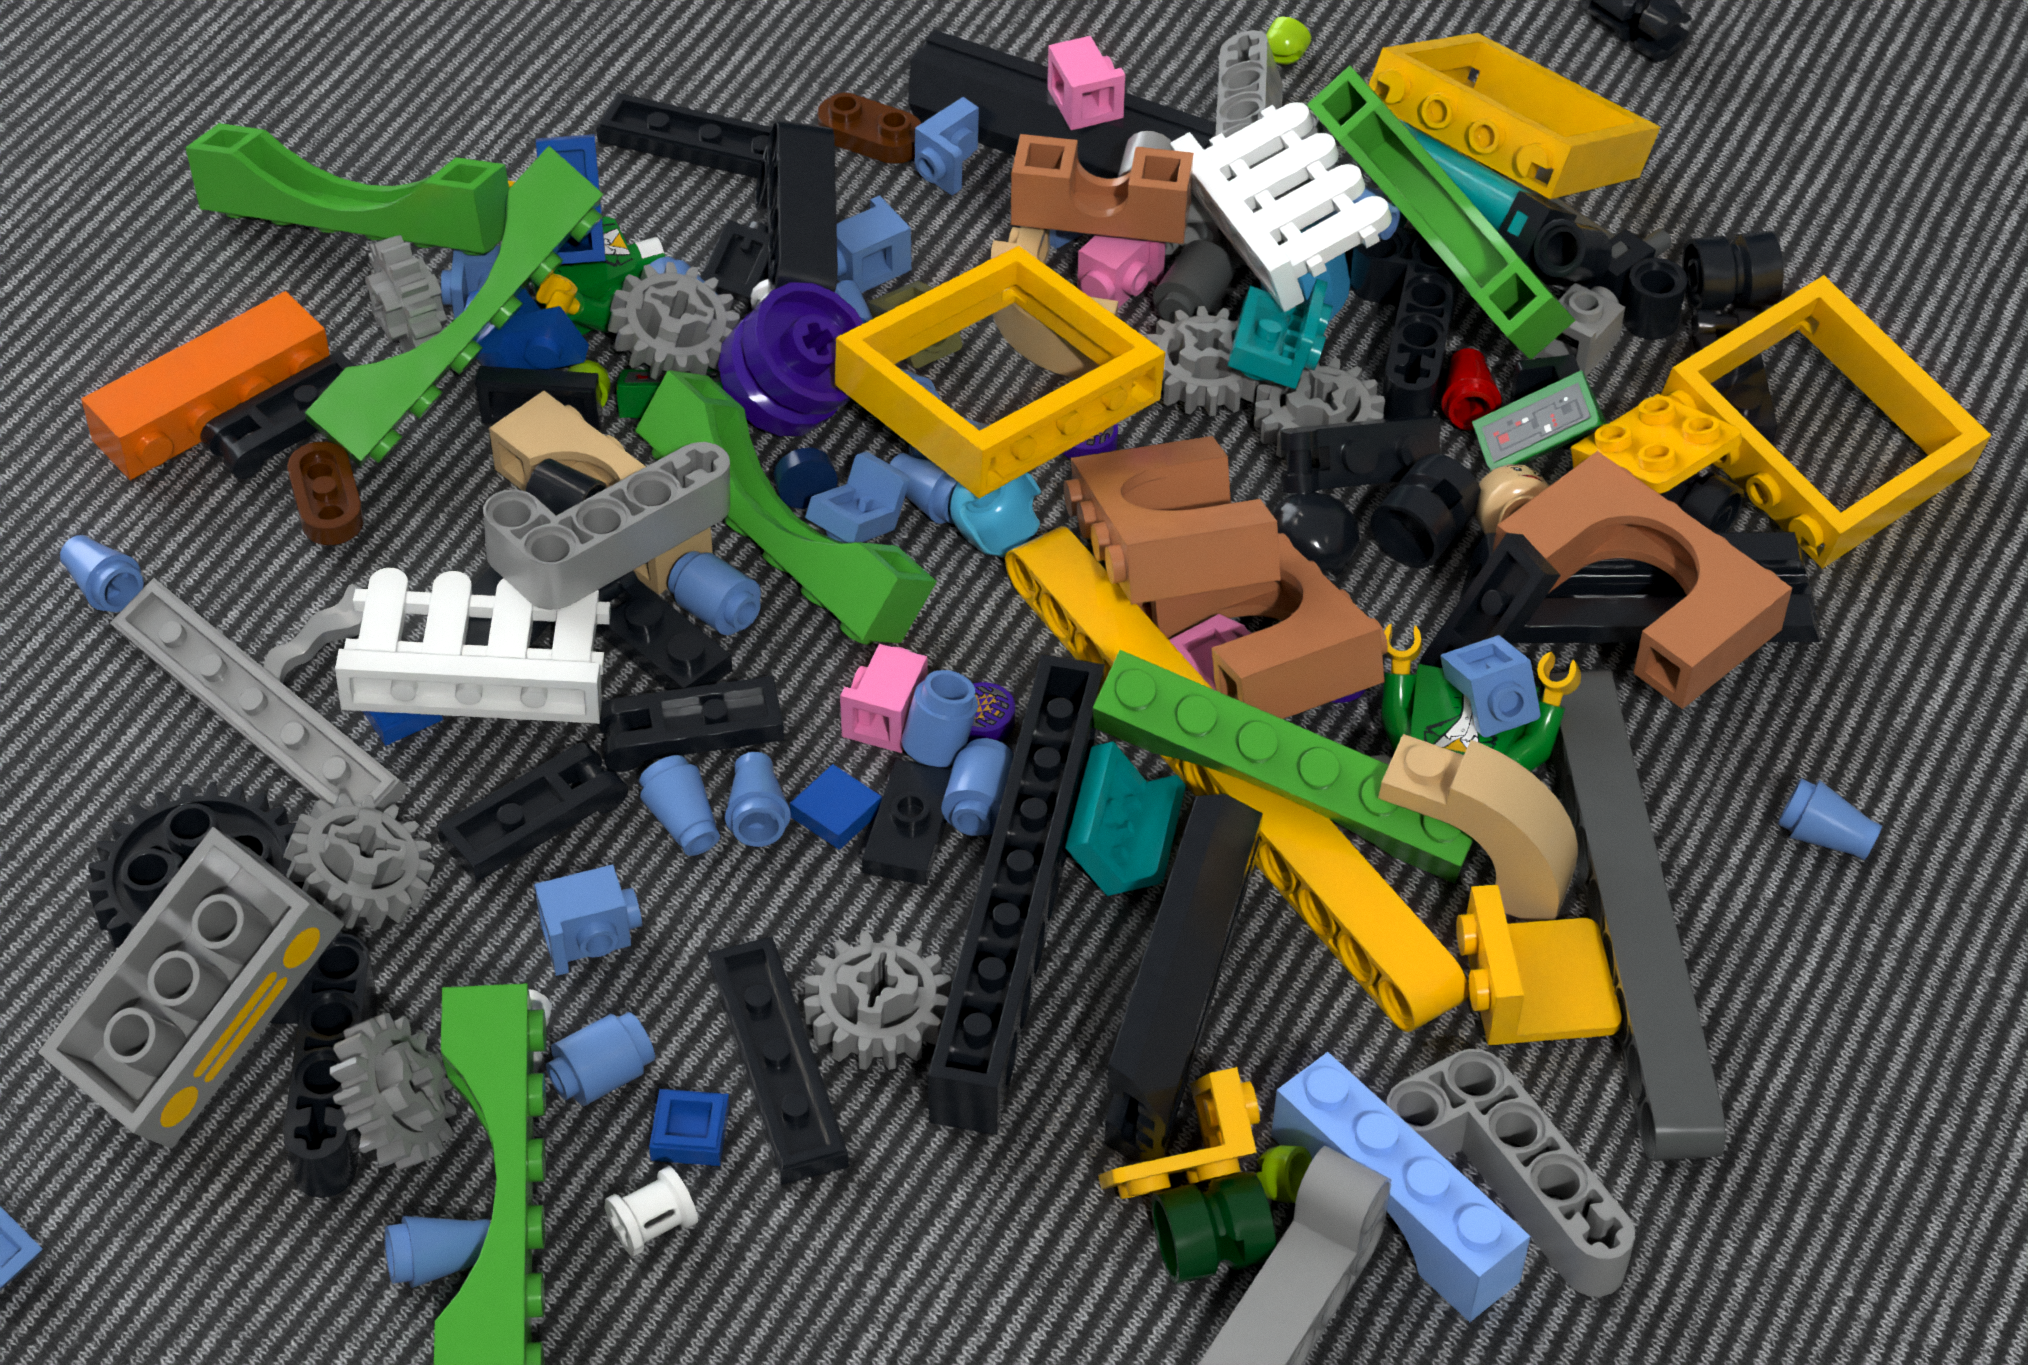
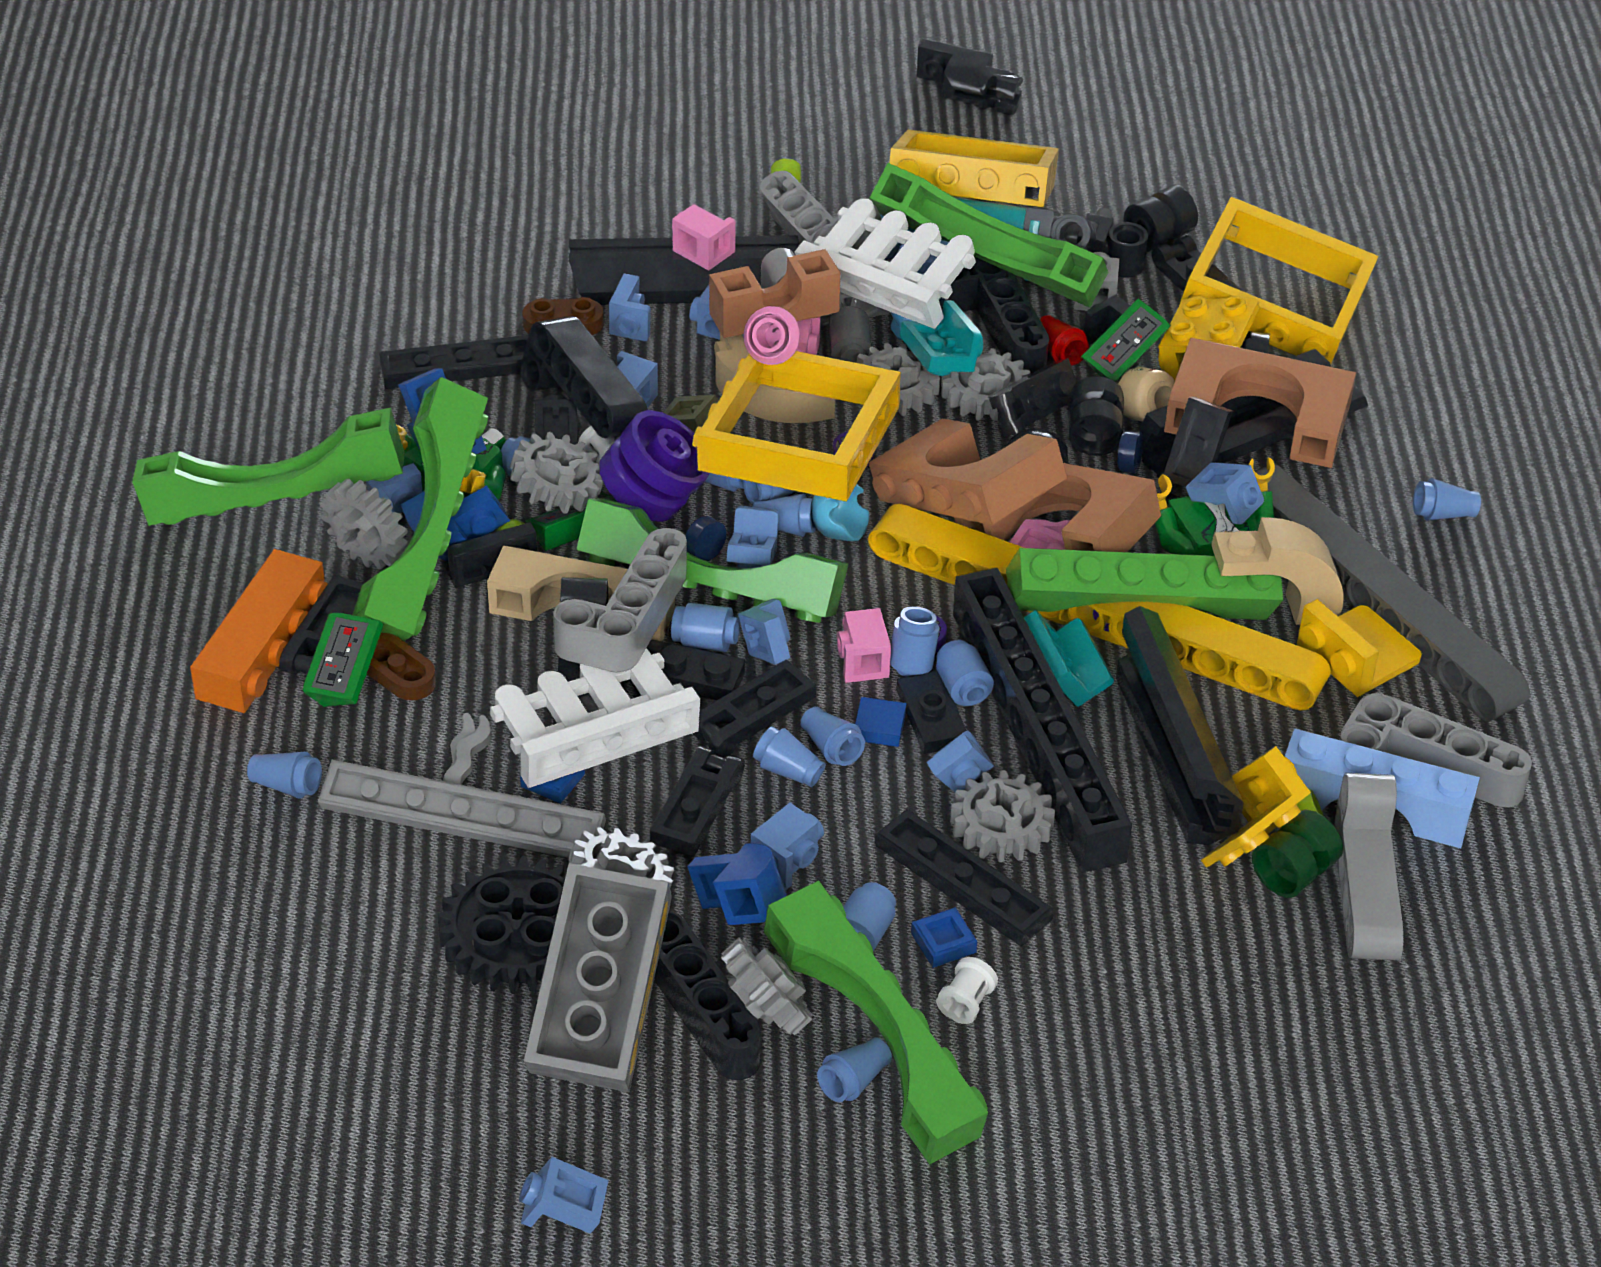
camera: 30 degrees left, 5 degrees down
(258, 457) = (342, 659): none -> slope
(470, 941) = (738, 883): none -> blue brick
(782, 625) = (766, 631): none -> medium blue bracket
(874, 902) = (960, 761): none -> medium blue bracket
(1024, 243) = (762, 338): none -> bright pink cone
(1439, 577) = (1130, 451): none -> dark blue tile

